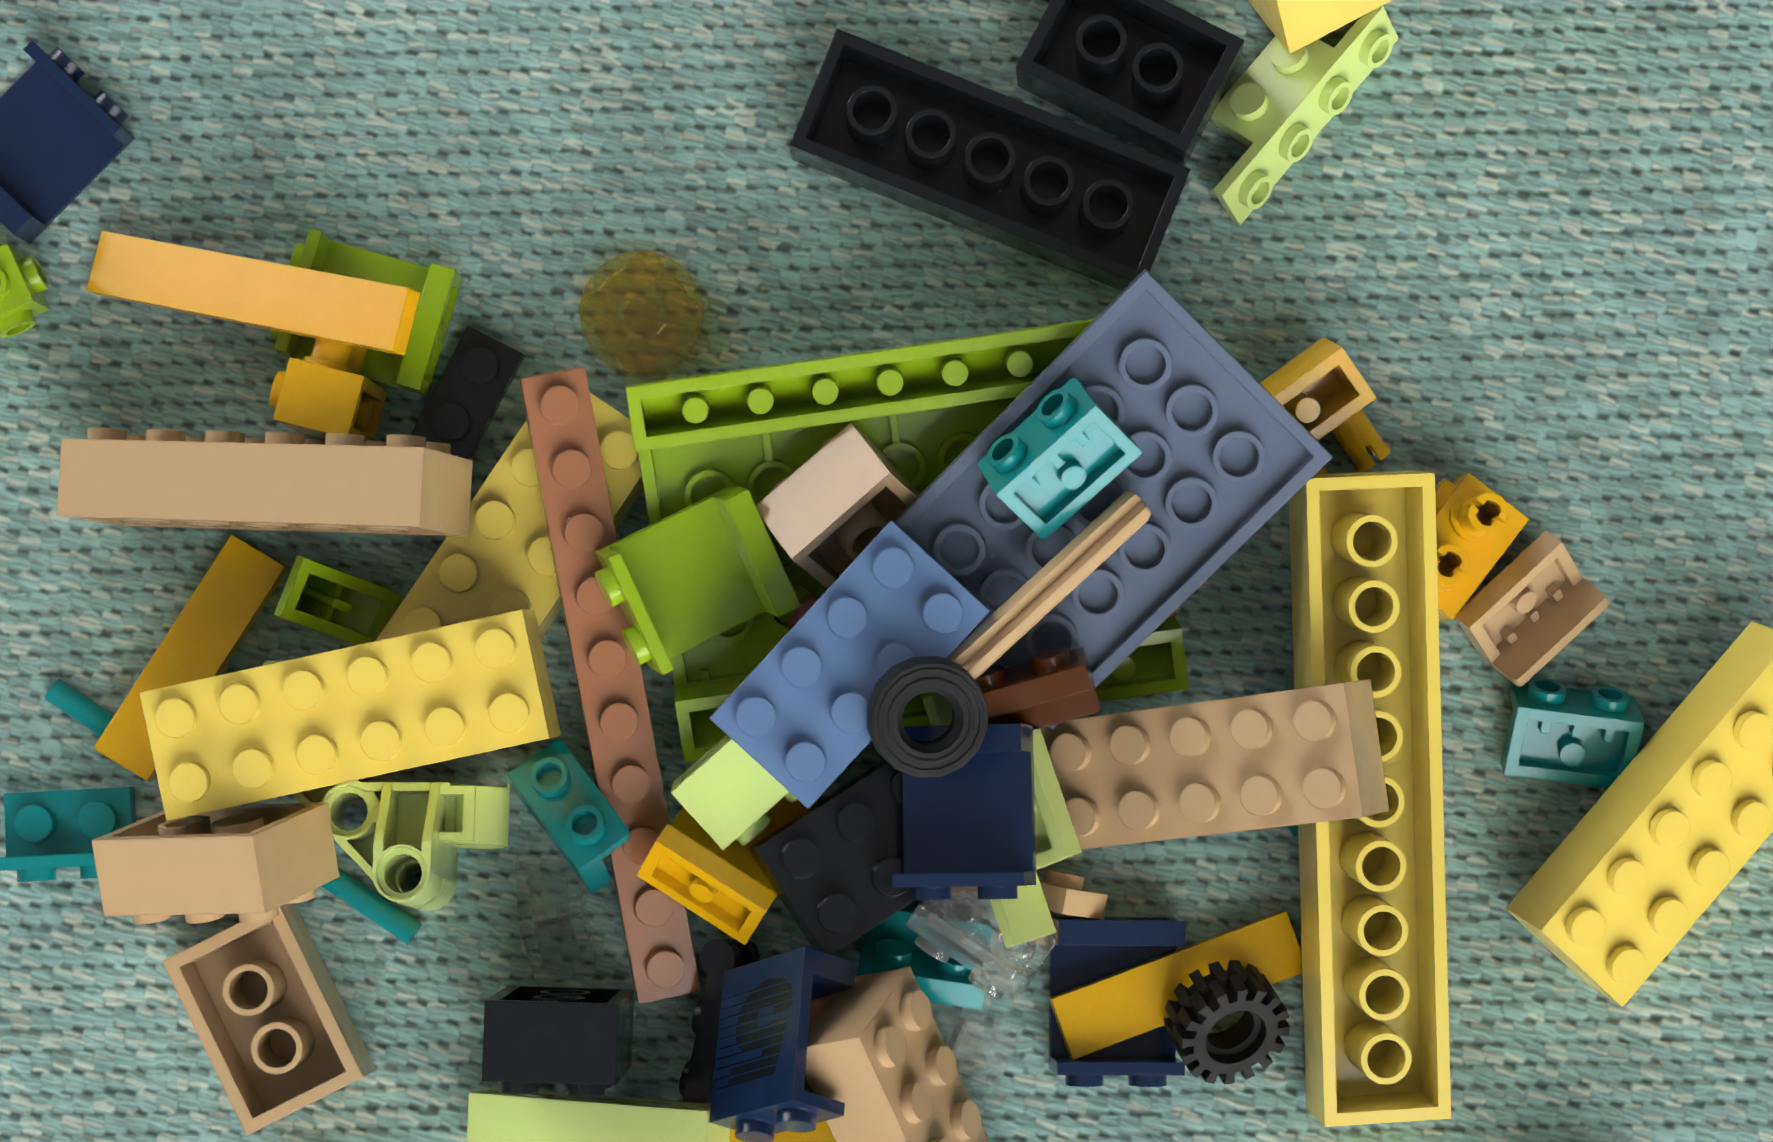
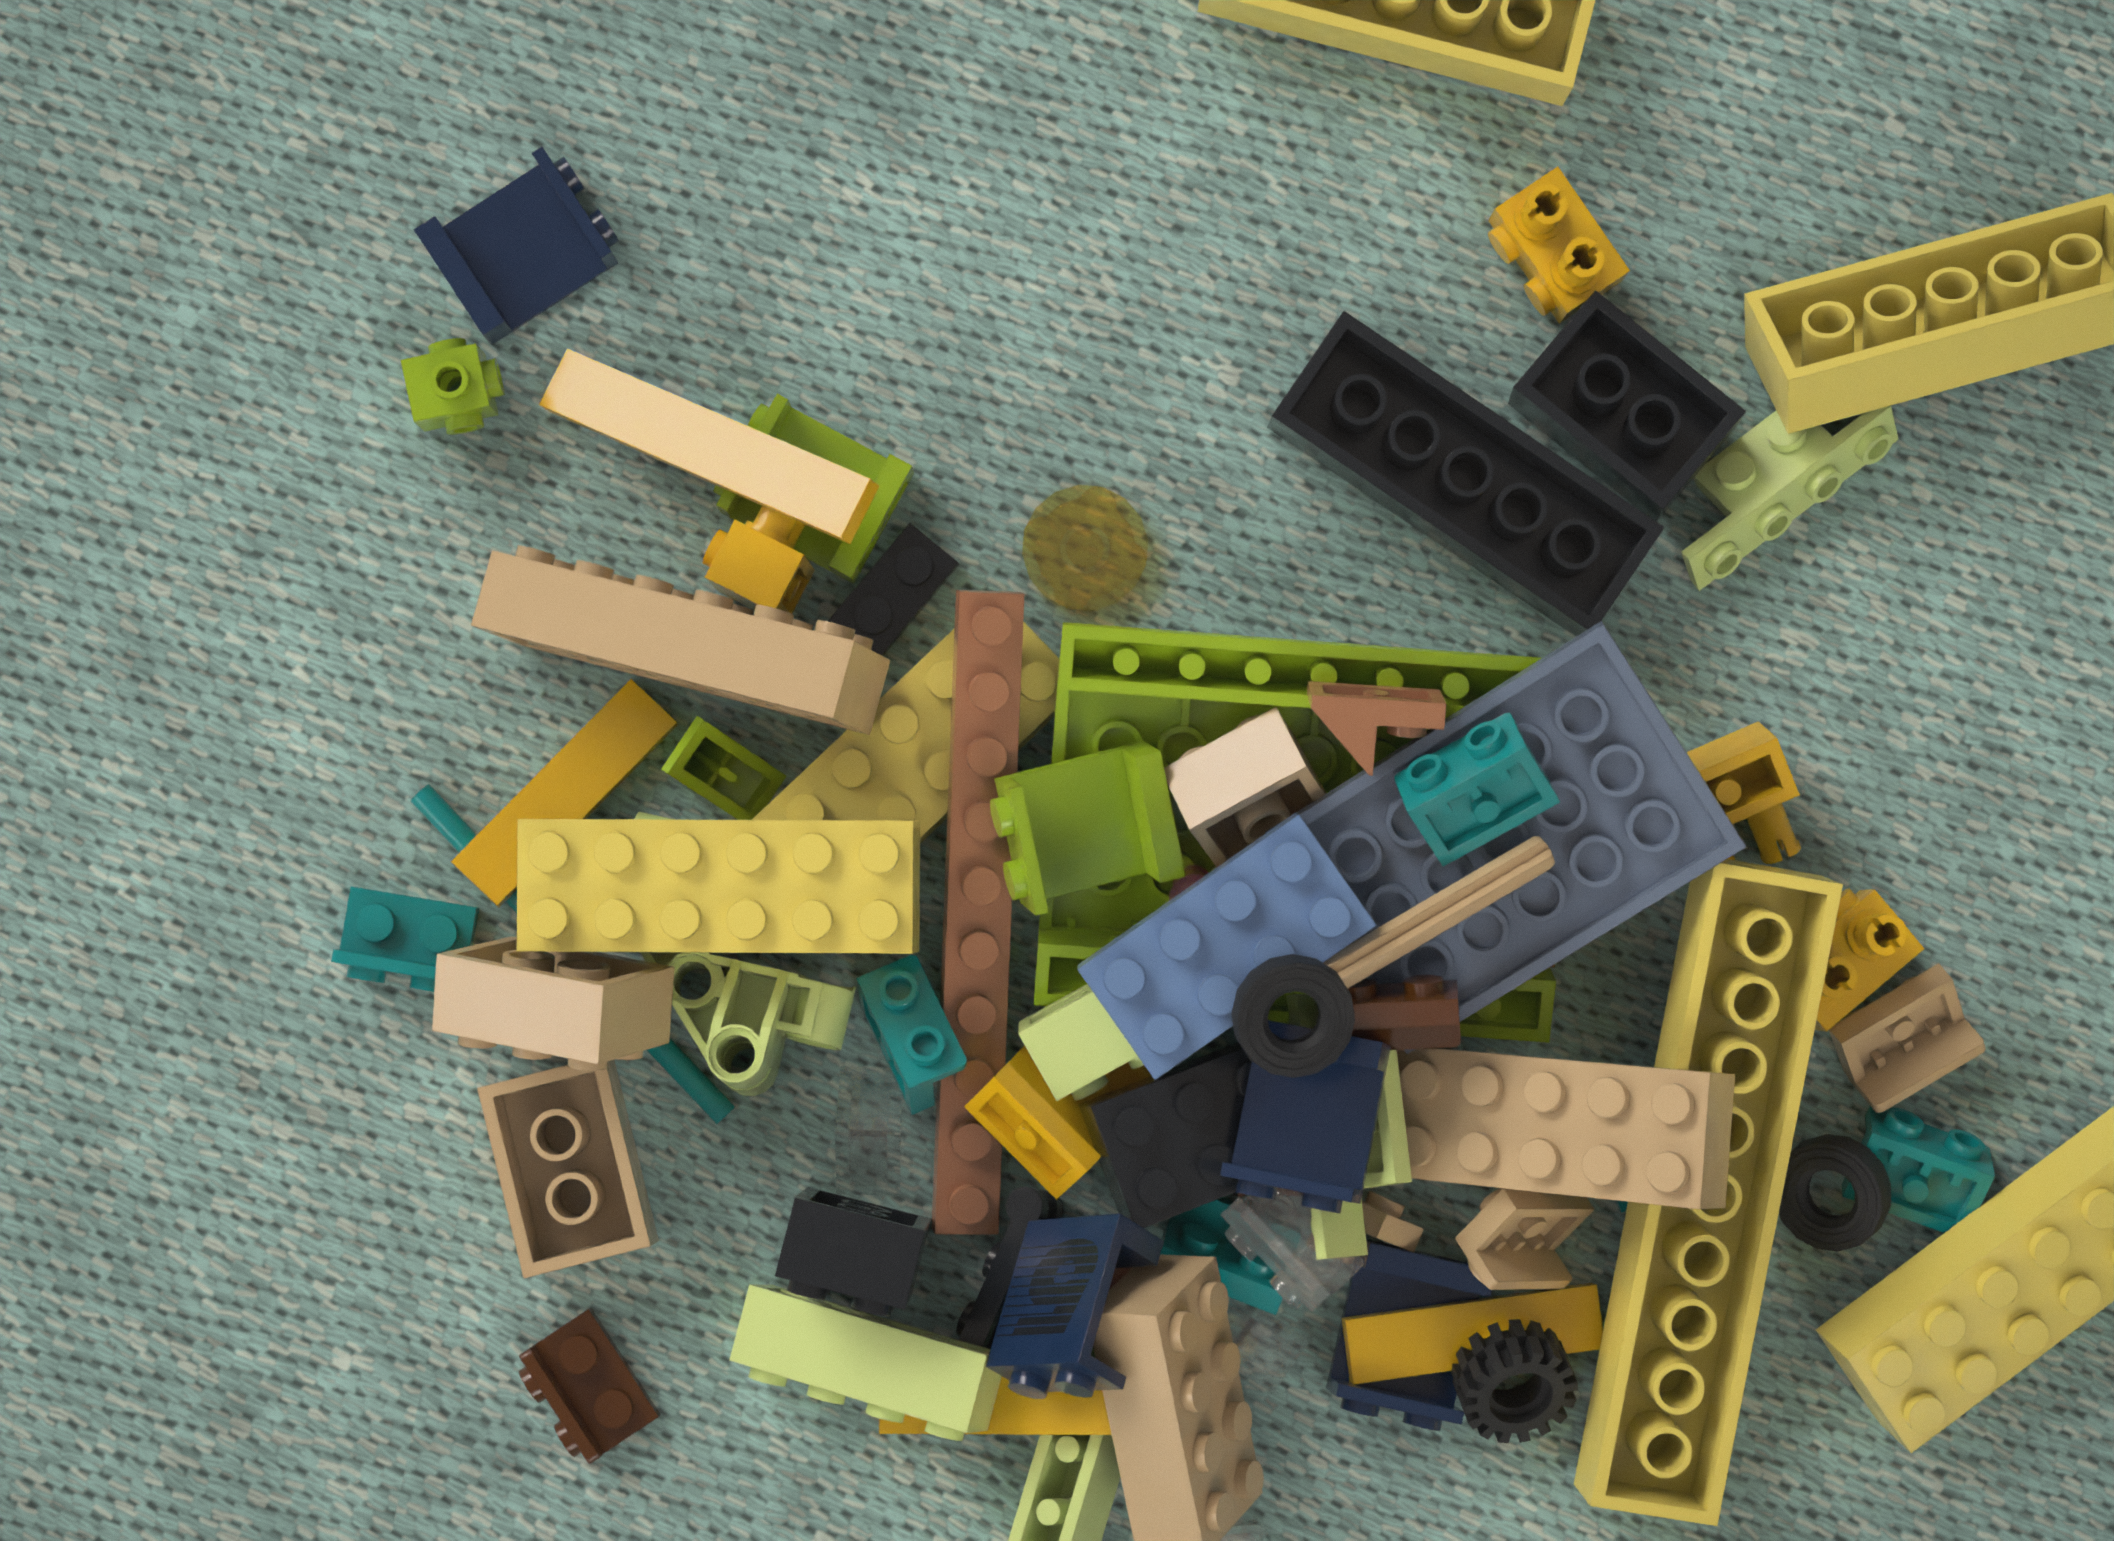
camera: 10 degrees right, 0 degrees up
(926, 408) = (1357, 710): none -> nougat slope
(1199, 883) = (1517, 1236): none -> tan bracket
(1515, 745) = (1863, 1172): none -> black tyre

